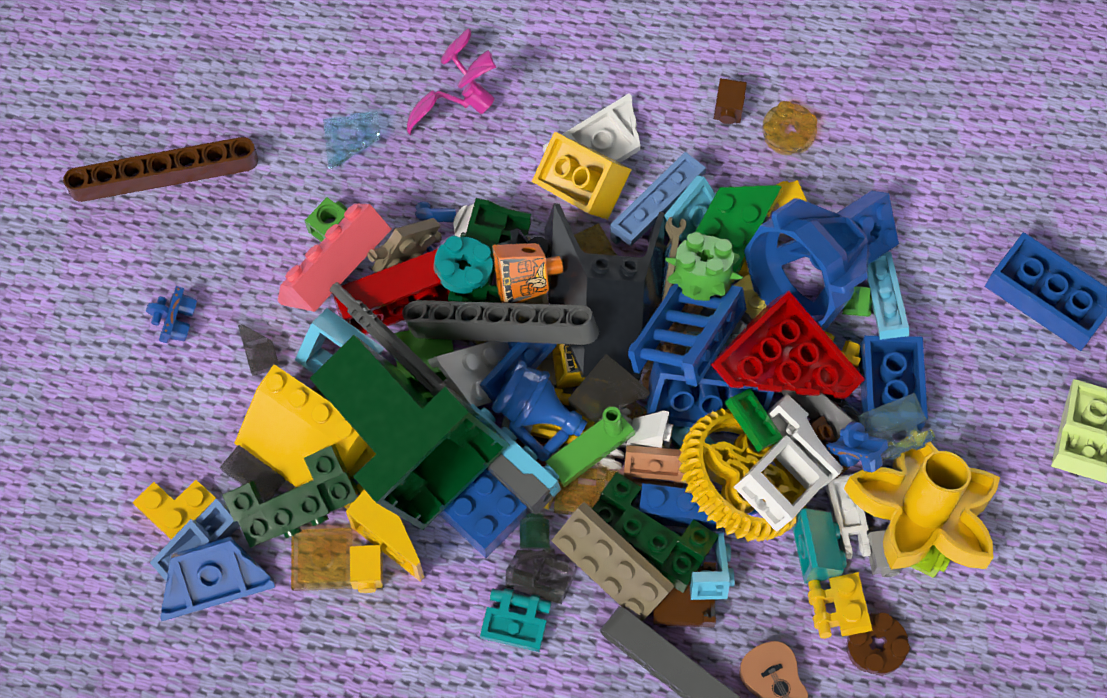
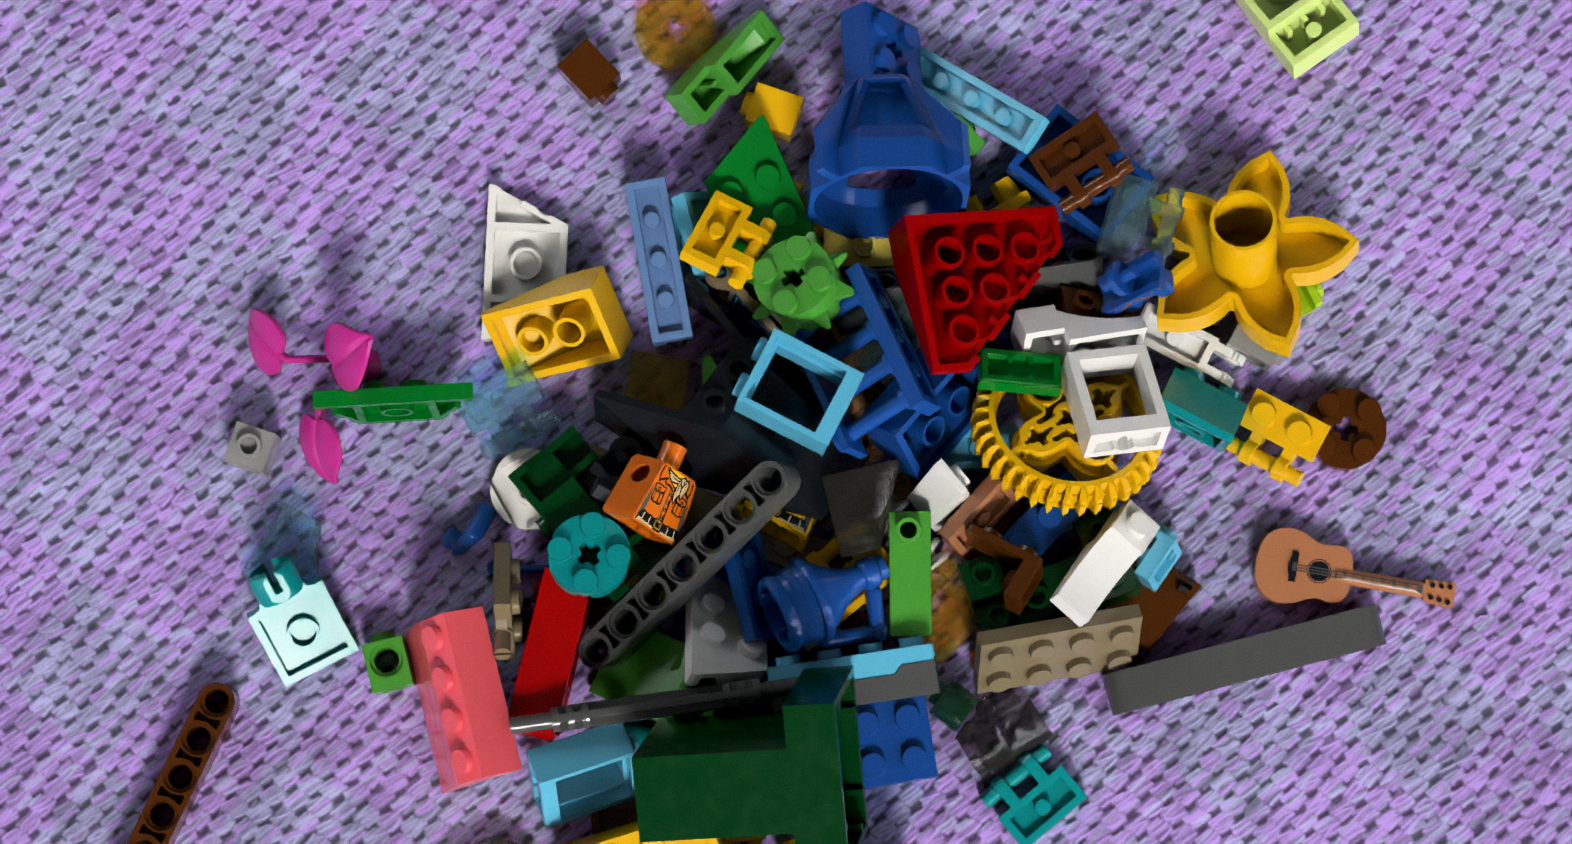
camera: 55 degrees left, 15 degrees up
(316, 159) = (297, 621): none -> plate
(394, 78) = (252, 449): none -> light grey brick
(470, 121) = (403, 403): none -> green wing
(517, 176) = (501, 397): none -> clear light blue plate
(641, 506) = (1018, 584): none -> reddish brown bracket
(643, 327) = (813, 360): none -> medium azure window
(682, 546) = (1104, 562): none -> white slope
(697, 205) = (717, 232): none -> yellow plate
(791, 163) = (724, 68): none -> bright green slope
(901, 360) = (1075, 153): none -> reddish brown plate

